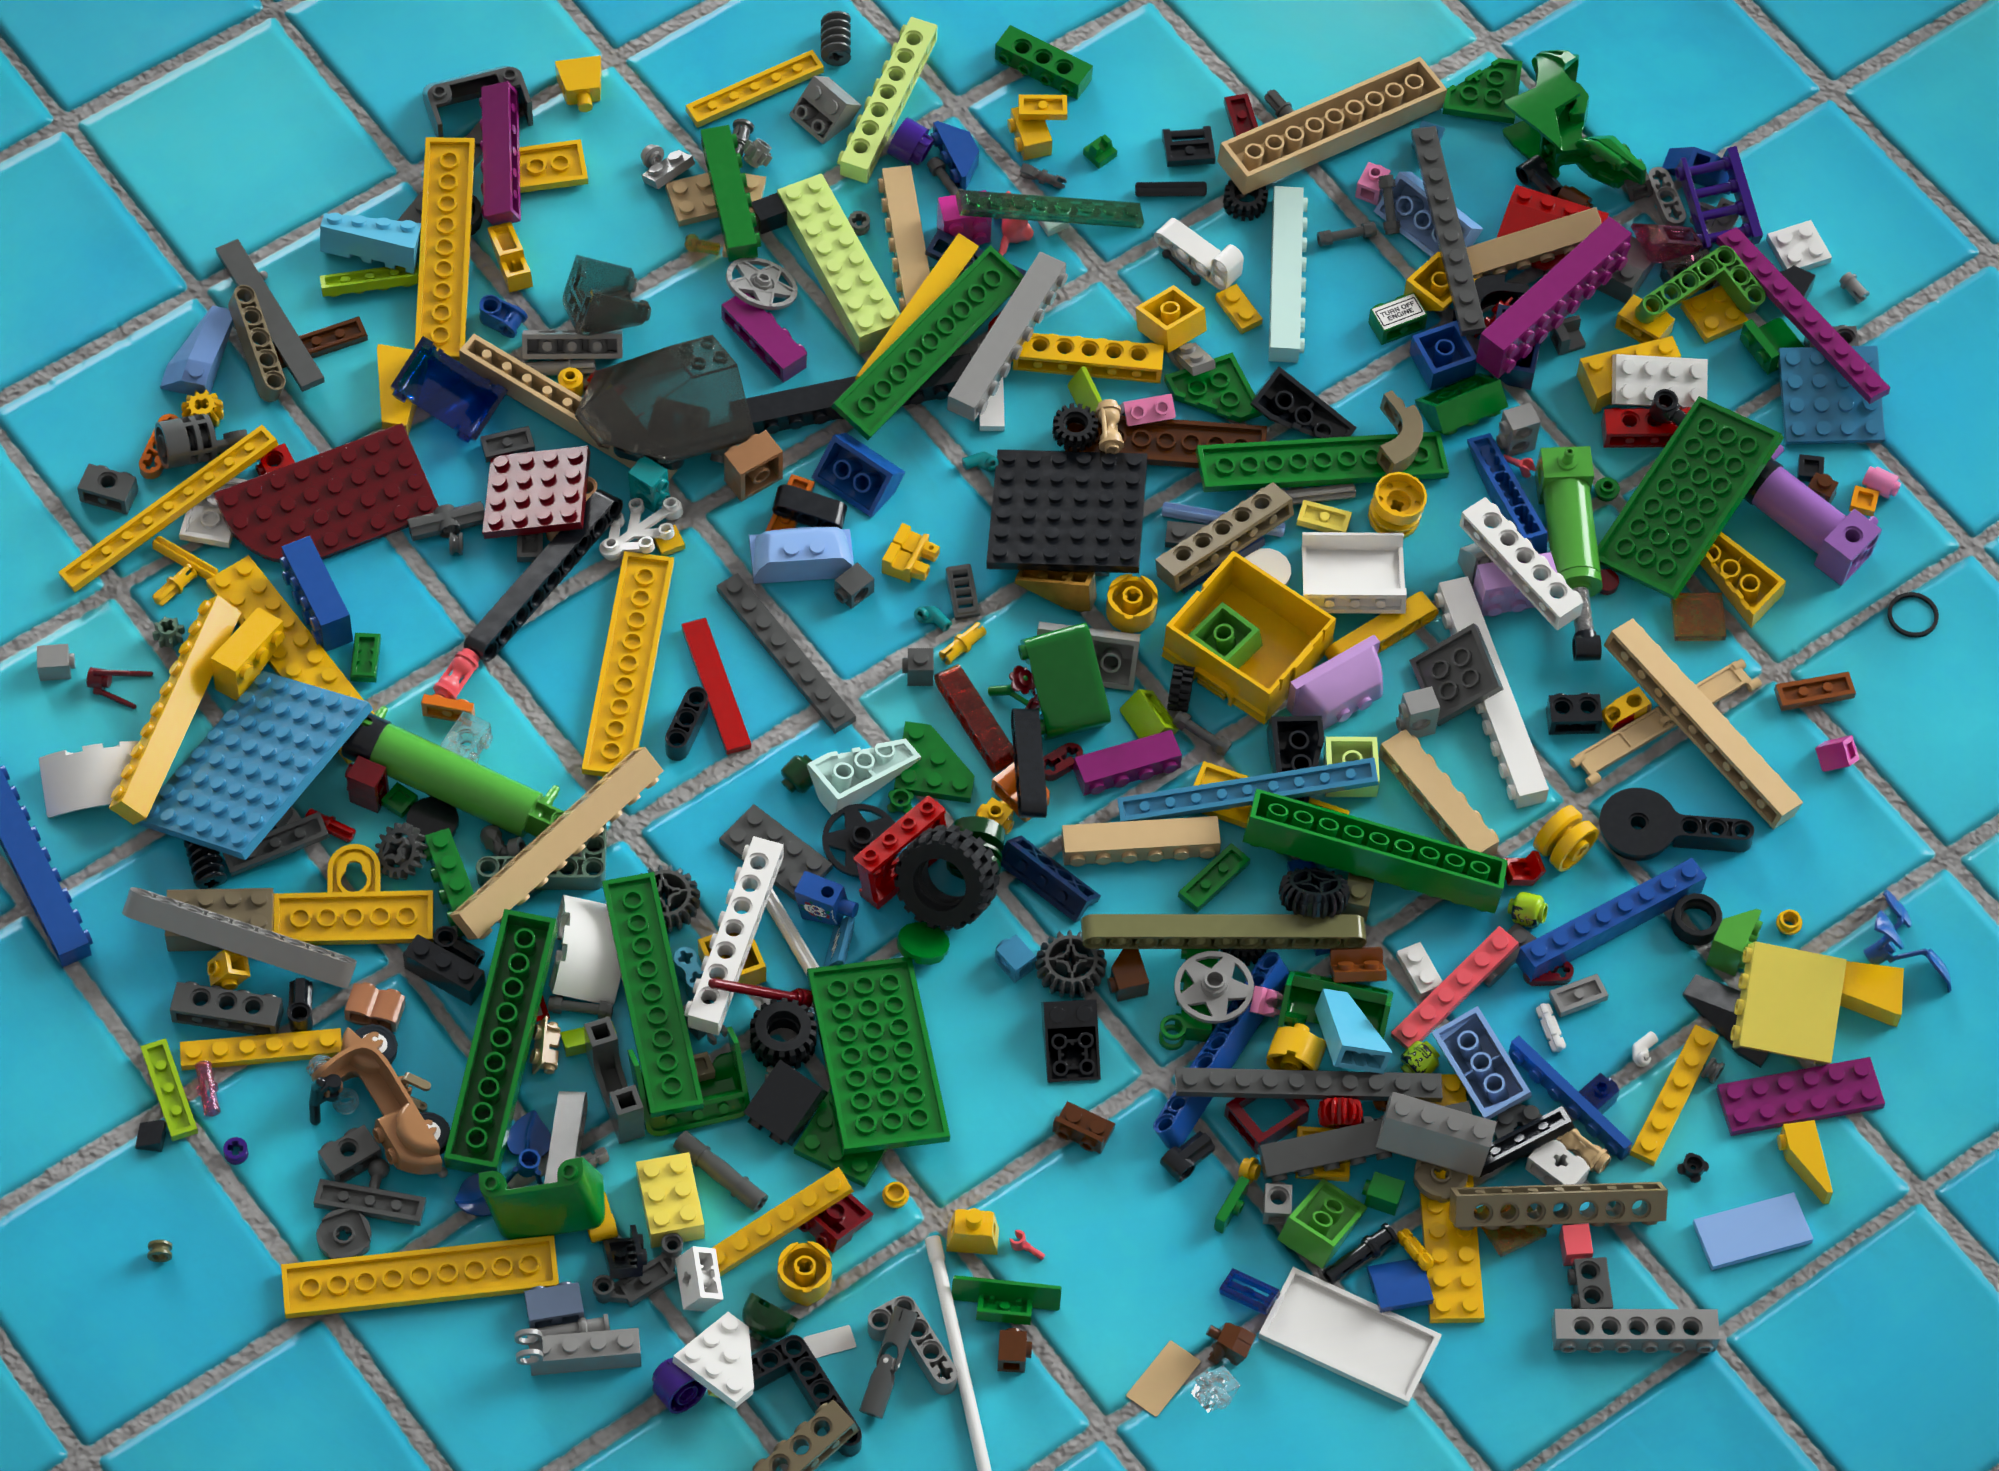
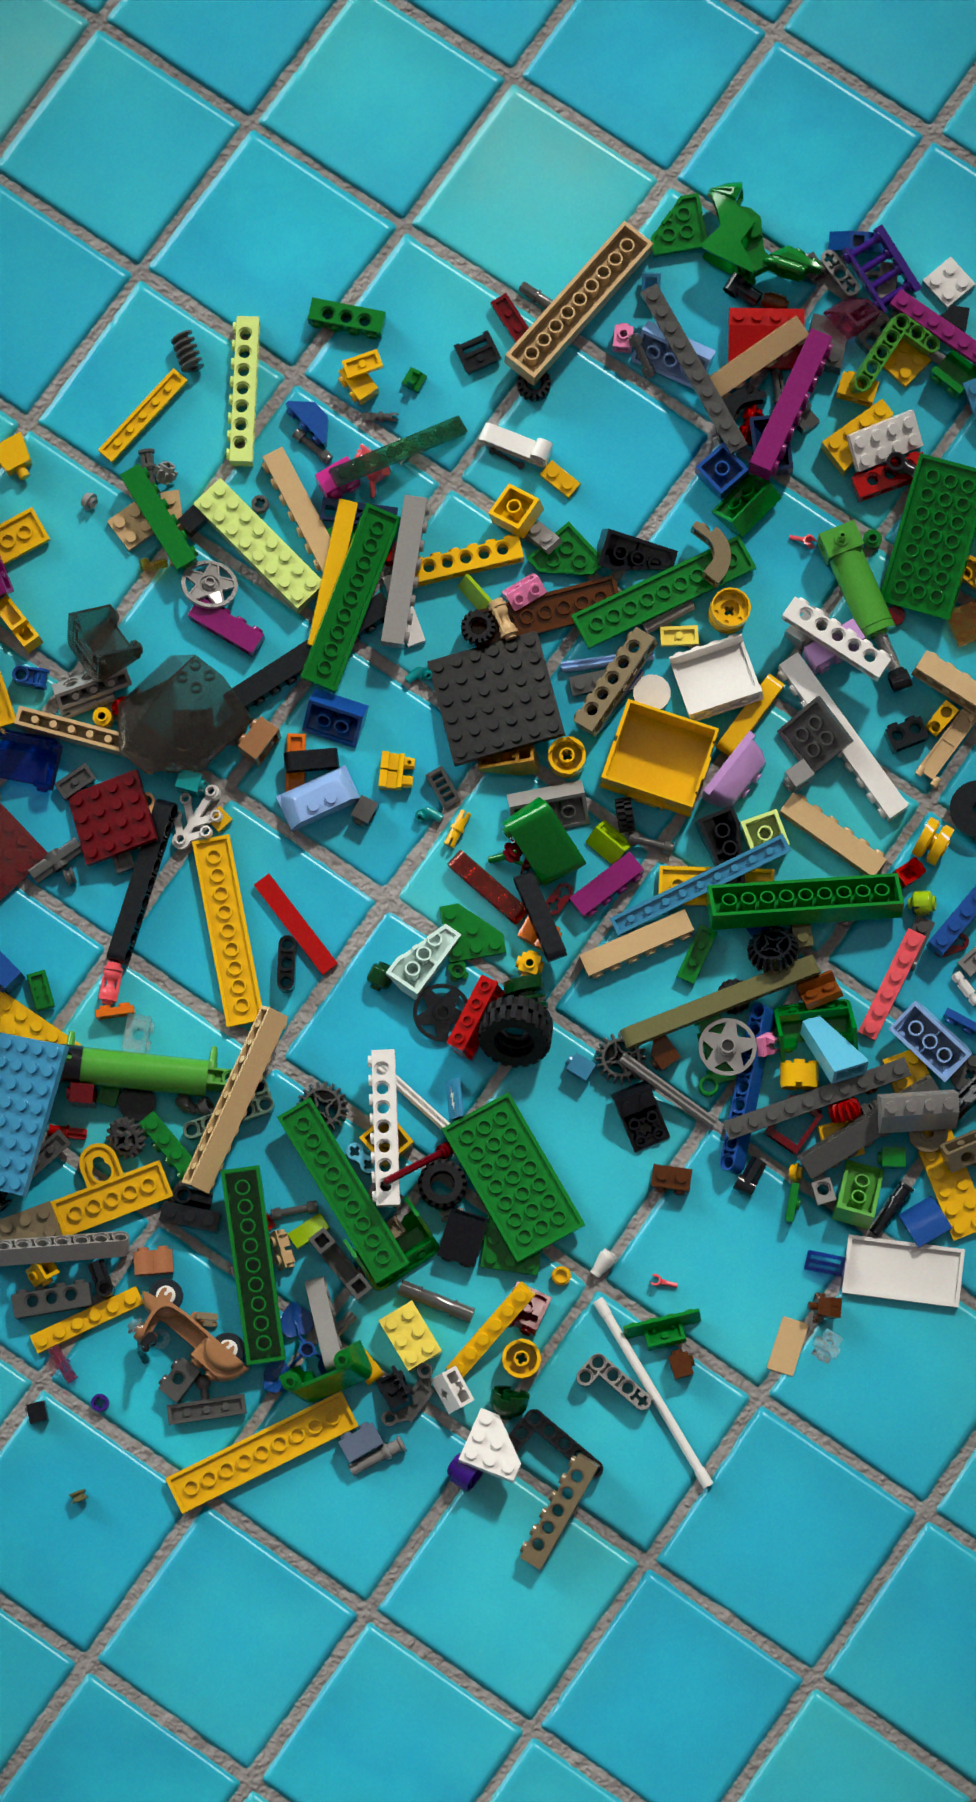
camera: 10 degrees left, 20 degrees up
(169, 1089) = (36, 1374): lime plate -> none
(346, 1221) = (200, 1429): dark grey plate -> none
(579, 1350) = (391, 1470): light grey hinge -> none
(588, 959) = (286, 1176): white panel -> none
(668, 169) = (105, 508): light grey plate -> none
(786, 653) = (335, 880): dark grey plate -> none
(797, 854) = (375, 1034): dark grey plate -> none
(823, 900) = (428, 1073): blue torso -> none
(824, 109) = (200, 416): light grey slope -> none
(831, 1341) = (554, 1399): white sticker -> none
(883, 1376) = (602, 1419): dark grey piece -> none
(910, 143) = (275, 425): dark purple piece -> none
(919, 666) = (434, 861): dark grey brick -> none
(923, 943) = (513, 1080): green tile -> none
(957, 1195) = (603, 1262): none -> white cone
(973, 1232) = (624, 1288): yellow torso -> none
(1047, 878) = (580, 997): dark blue fence -> none
(1118, 1017) = (668, 1090): none -> light grey axle
(1170, 189) = (476, 394): black axle -> none
(1228, 635) = (643, 766): bright green brick -> none
(1286, 274) = (585, 439): light aqua brick -> none
(1327, 237) = (604, 397): dark grey bar -> none
(1397, 318) = (677, 449): brick -> none
(1415, 1249) = (927, 1193): yellow axle -> none
(1419, 969) = (862, 975): white plate -> none
(1420, 1058) = (885, 1047): lime head -> none
(1430, 285) = (694, 417): yellow slope -> none
(1506, 491) = (804, 572): blue slope -> none
(1518, 430) = (795, 517): light grey brick -> none

